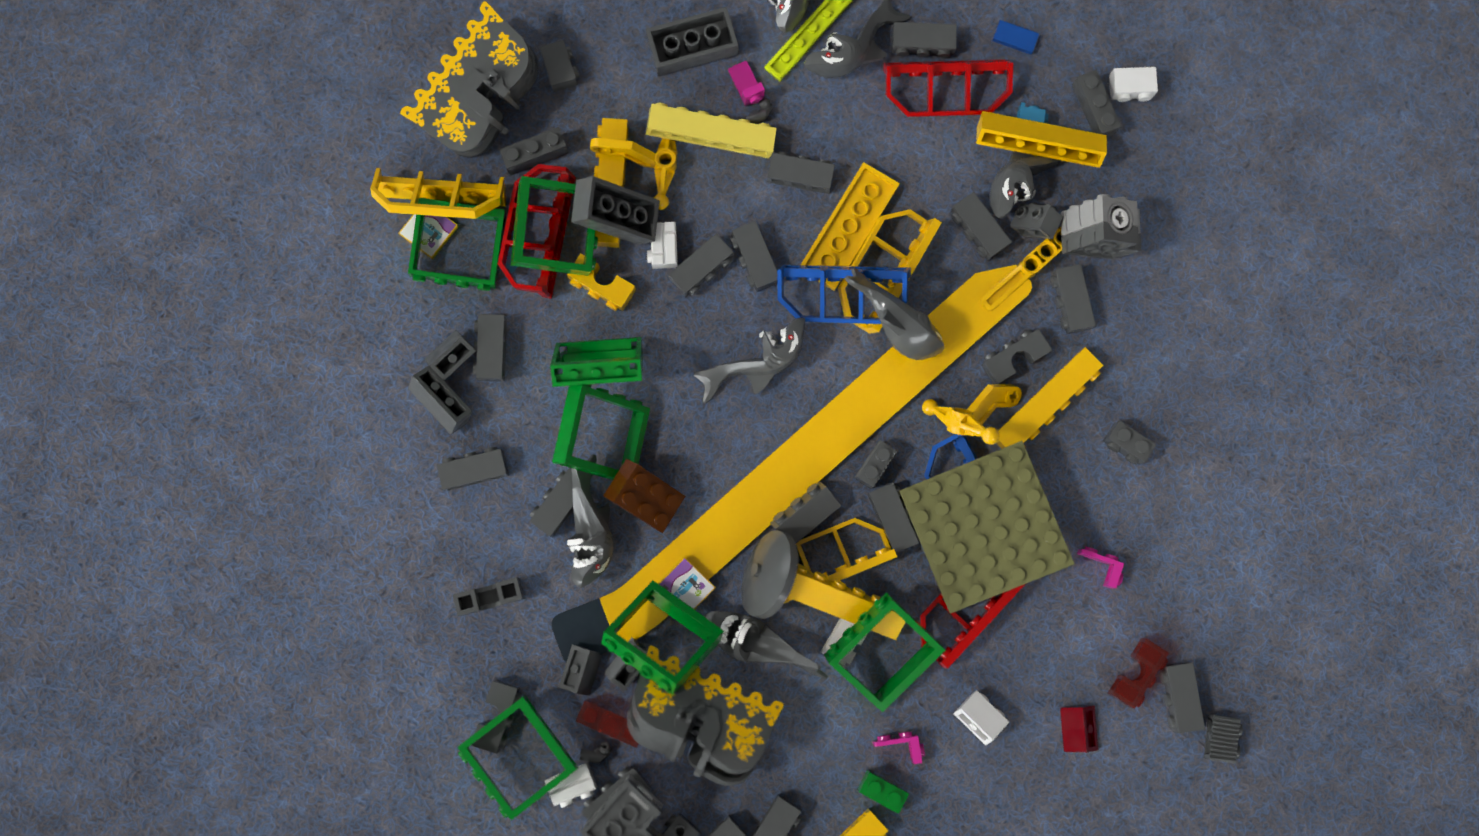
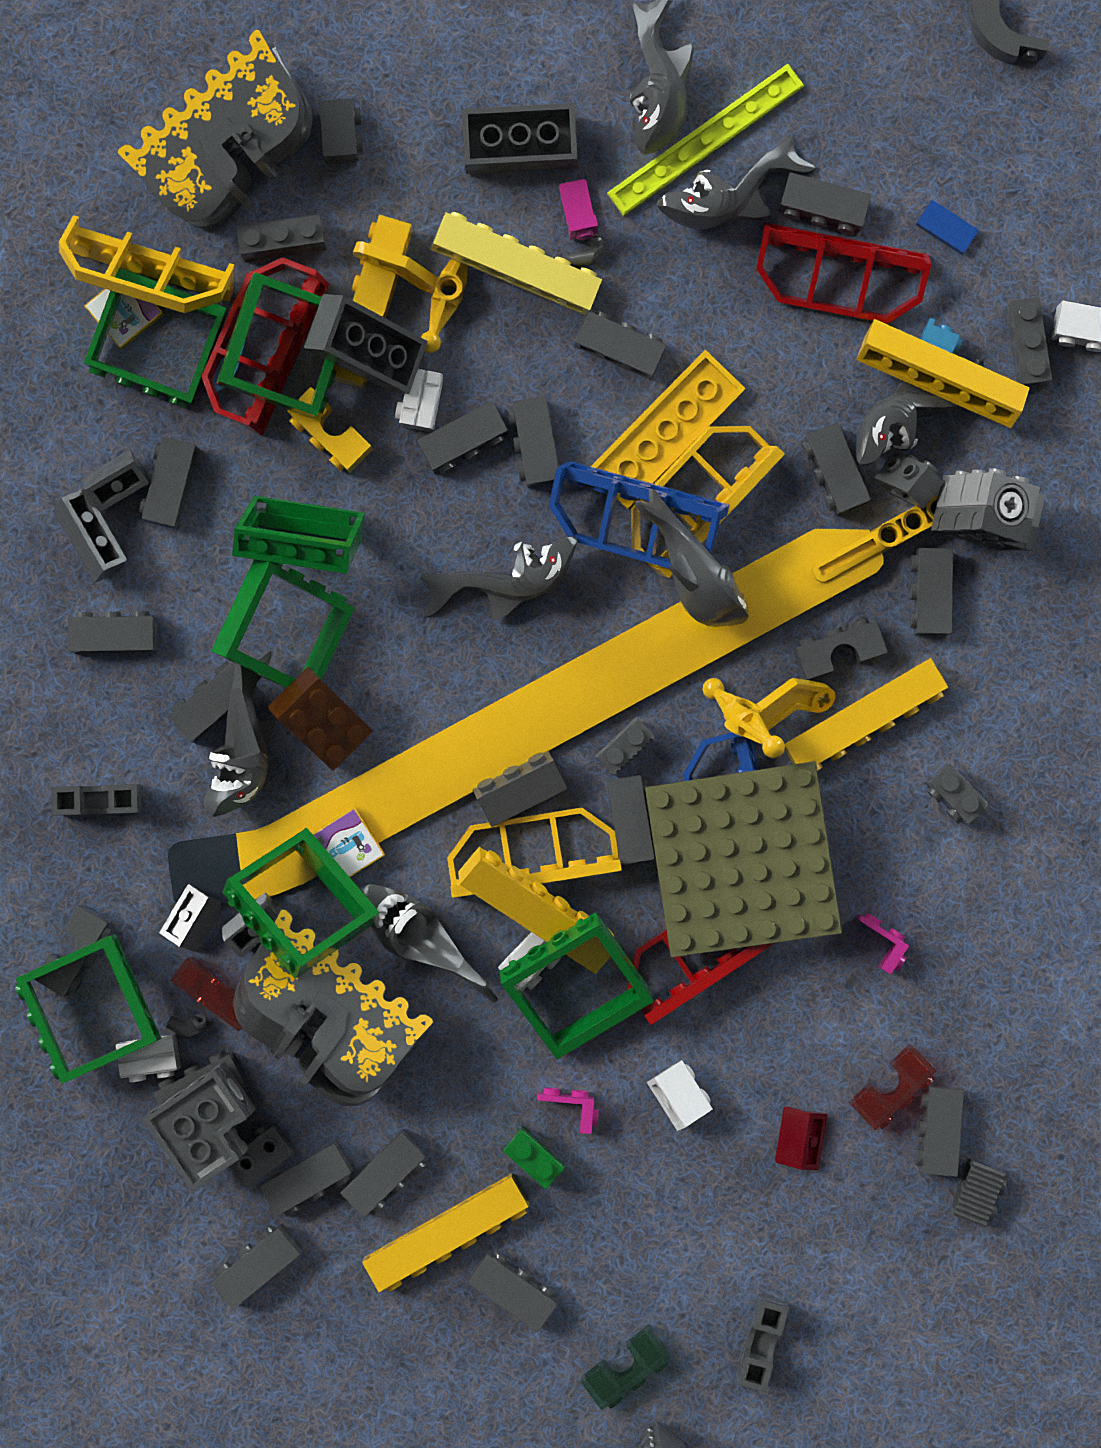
camera: 20 degrees right, 5 degrees up
(769, 574) = (453, 855): dark grey dish -> none

